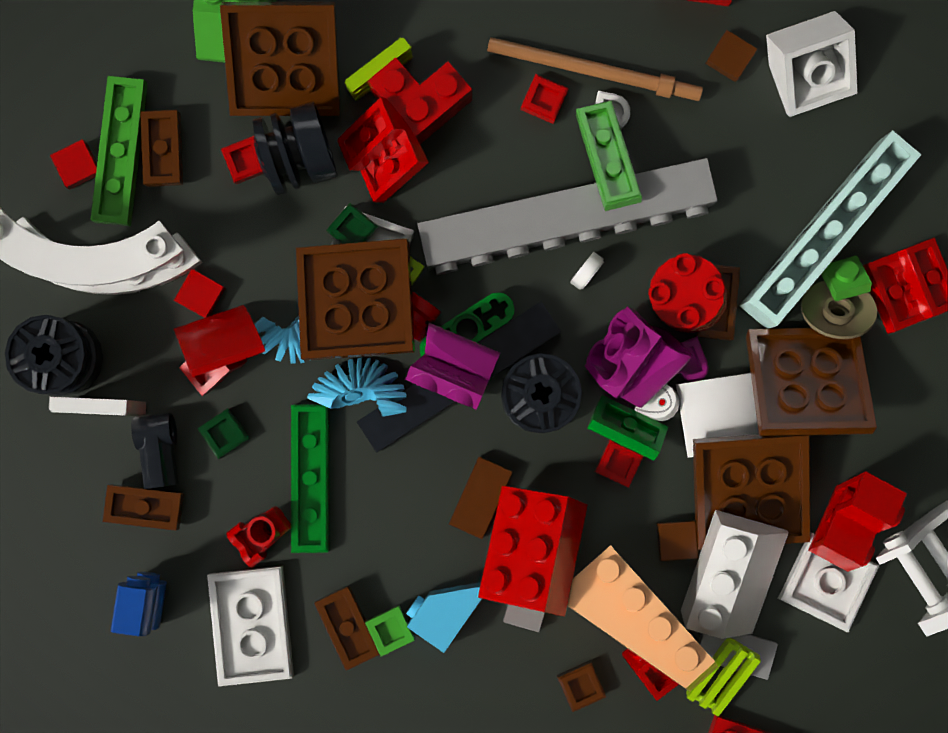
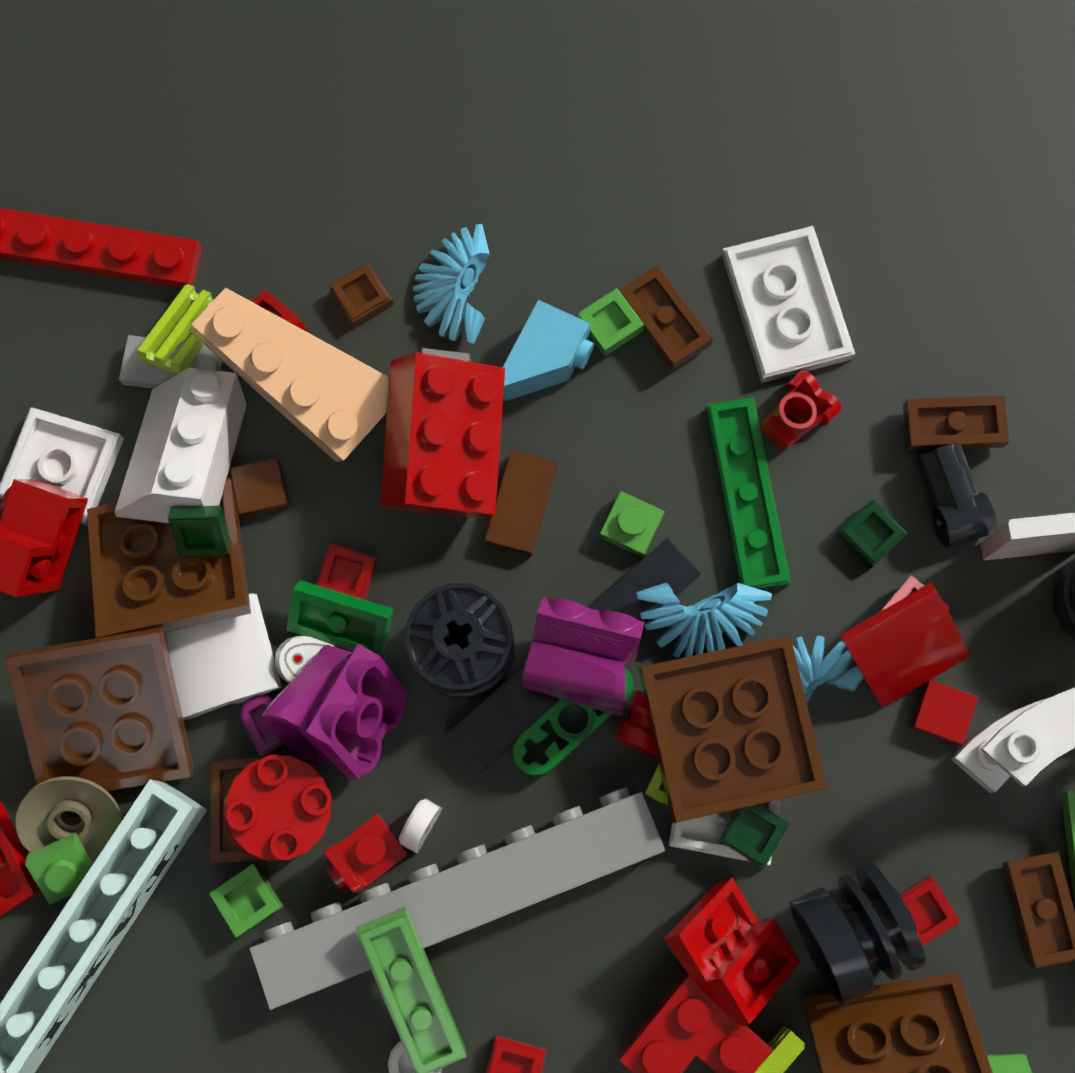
camera: 175 degrees right, 10 degrees down
(139, 604) = (933, 297): blue brick -> none
(400, 468) = (632, 524): none -> bright green plate
(510, 682) = (450, 284): none -> medium azure hair
(630, 255) = (364, 855): none -> red bracket
(716, 237) = (246, 900): none -> bright green plate
(724, 504) = (199, 530): none -> dark green tile

